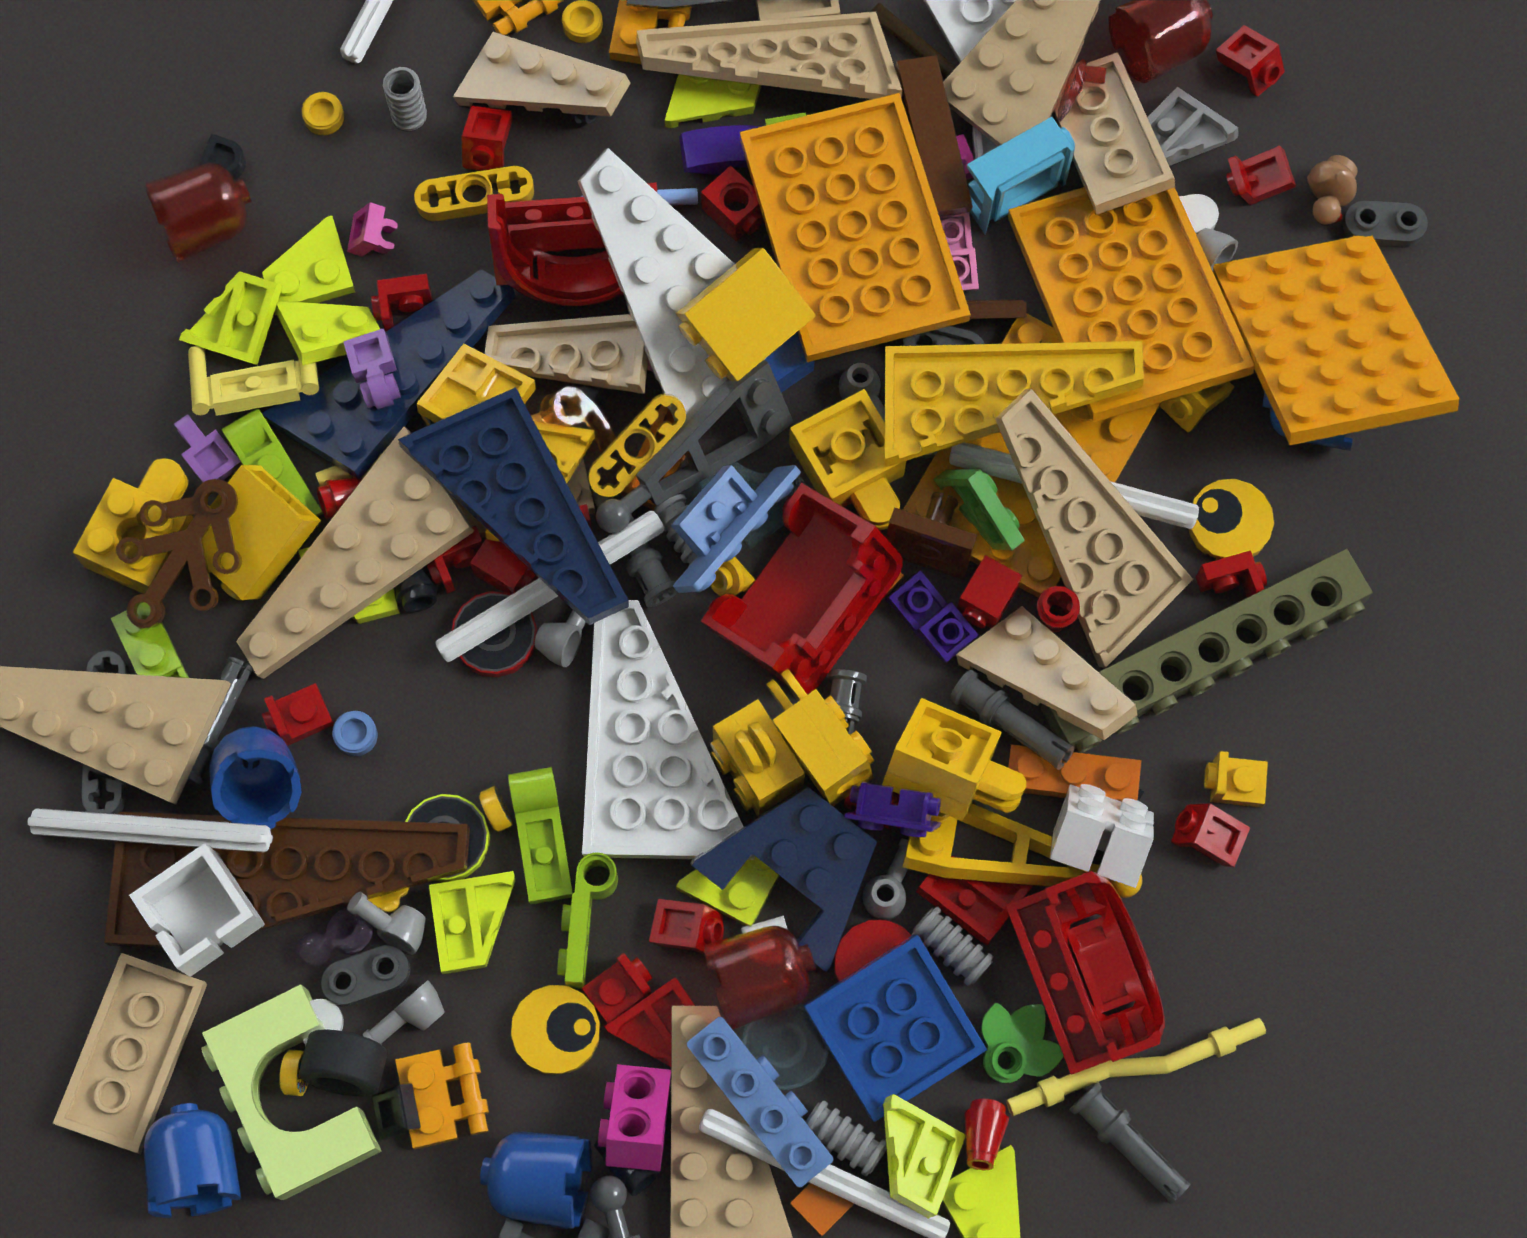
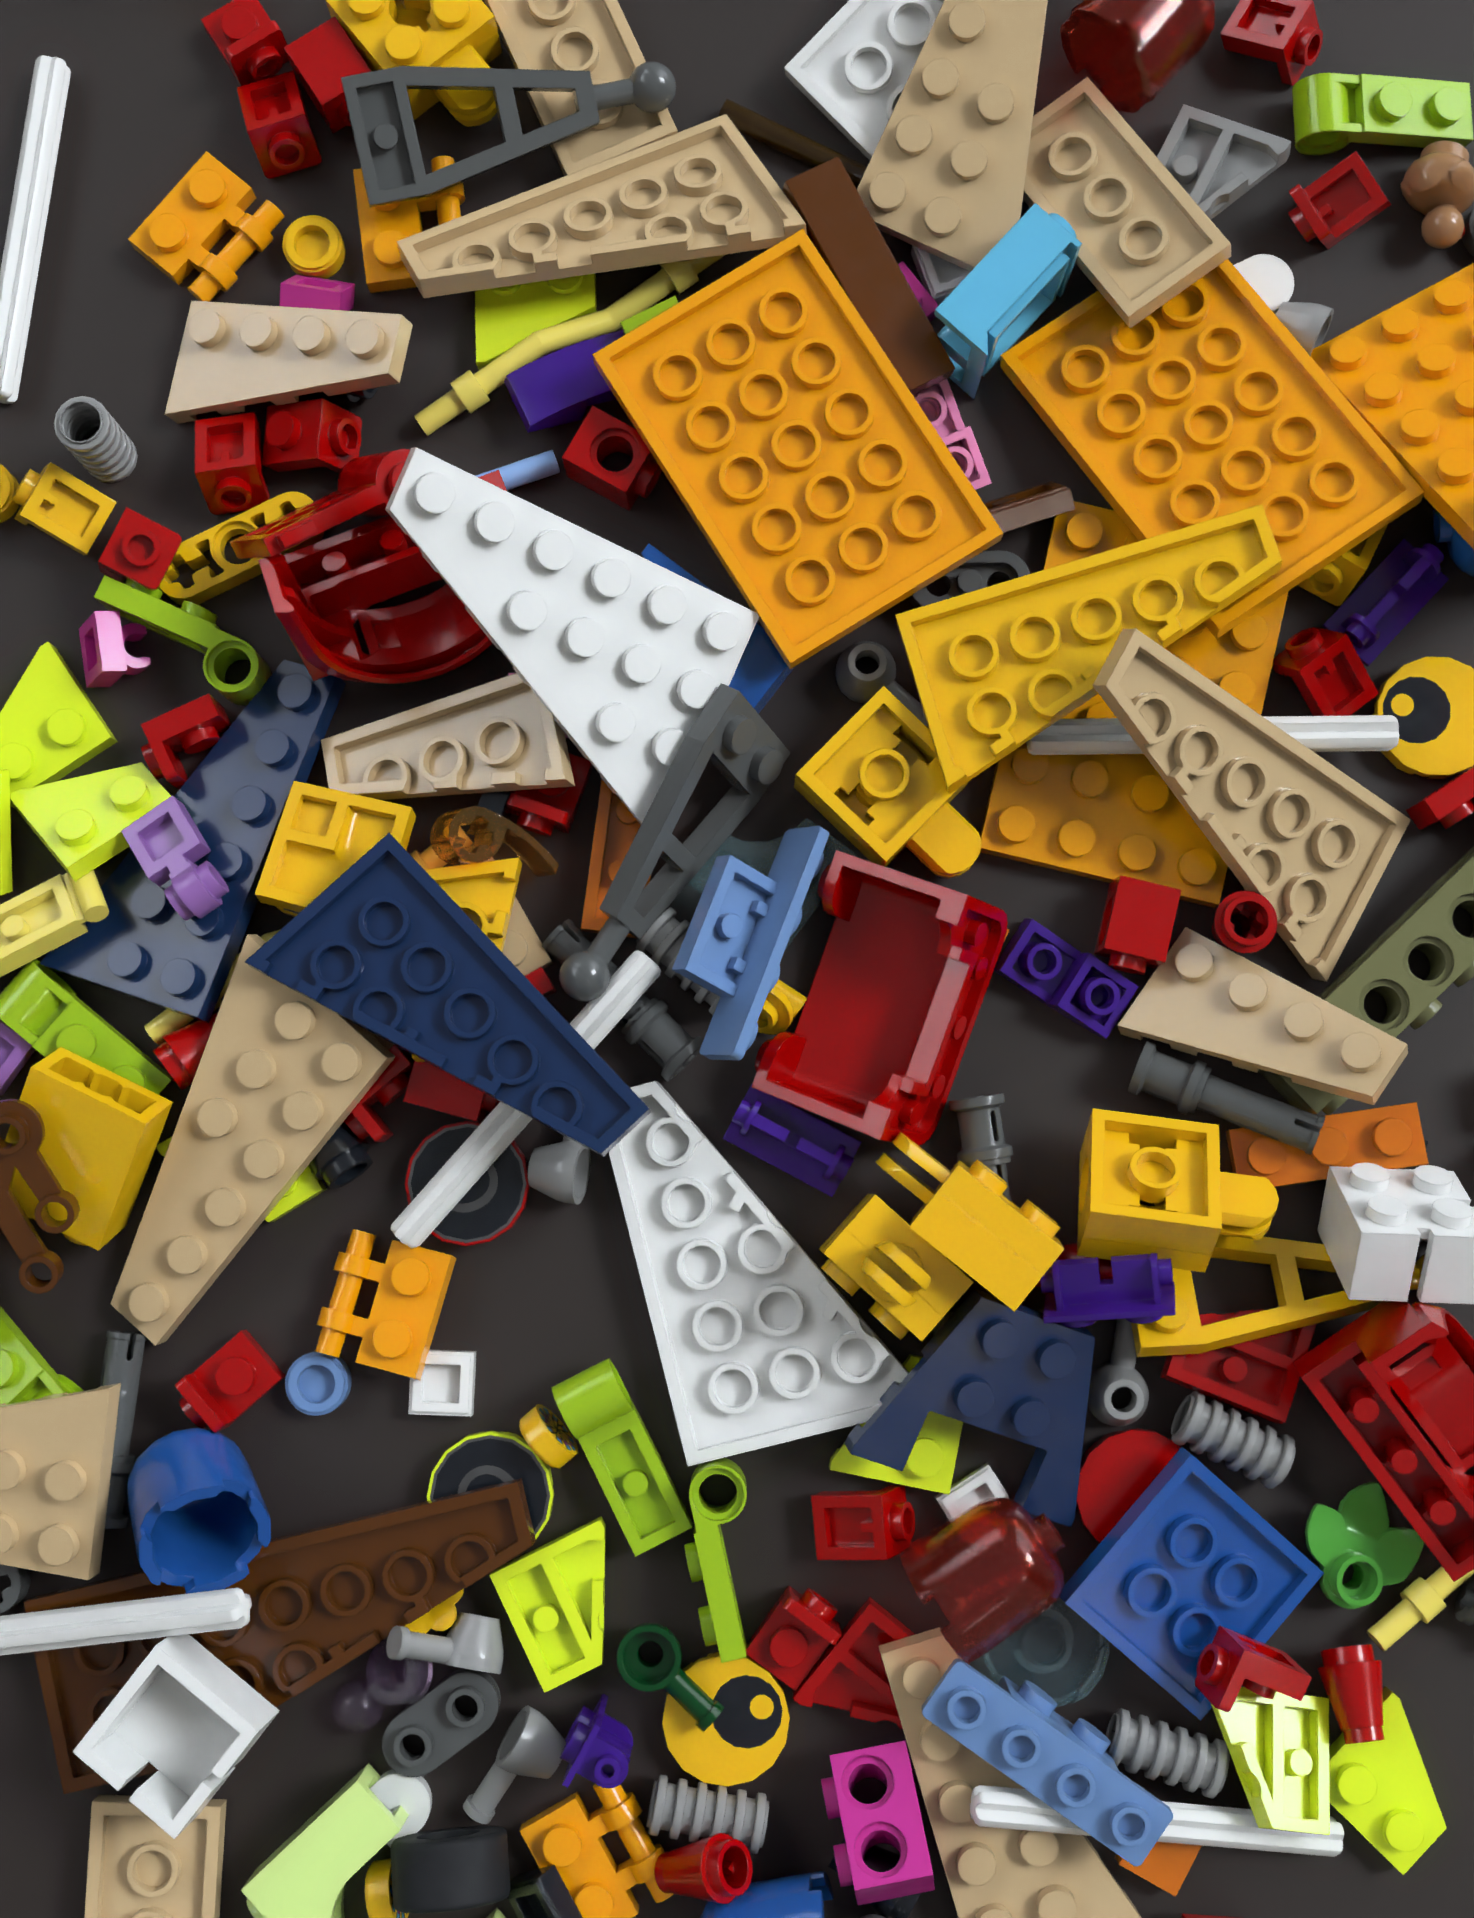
camera: 15 degrees left, 10 degrees up
(369, 135) = (62, 507): none -> yellow bracket
(409, 174) = (139, 550): none -> red bracket
(427, 233) = (190, 627): none -> lime plate
(427, 700) = (403, 1309): none -> light orange plate
(436, 757) = (445, 1384): none -> white tile
(462, 1006) = (597, 1747): none -> dark purple hinge
(513, 1112) = (706, 1870): none -> red cone
(523, 955) = (665, 1672): none -> dark green bar
(524, 1085) = (707, 1812): none -> light grey piece
(543, 135) = (310, 436): none -> red bracket
(562, 179) = (362, 491): none -> red piece
(575, 48) = (316, 293): none -> dark pink tile
(622, 475) = (582, 911): yellow beam -> none
(623, 406) = (551, 807): none -> red bracket
(656, 136) = (472, 390): none -> light yellow bar
(716, 667) = (792, 1140): none -> dark purple hinge
(744, 315) = (688, 635): yellow brick -> none
(922, 1090) = (1243, 1661): none -> red bracket
(931, 539) = (1038, 874): reddish brown tile -> none
(982, 507) = (1100, 809): bright green wing -> none
(1079, 74) = (1046, 125): clear red bar -> none
(1165, 469) = (1326, 672): none -> red bracket
(1220, 437) = (1389, 598): none -> dark purple hinge
(1306, 125) = (1378, 110): none -> lime plate

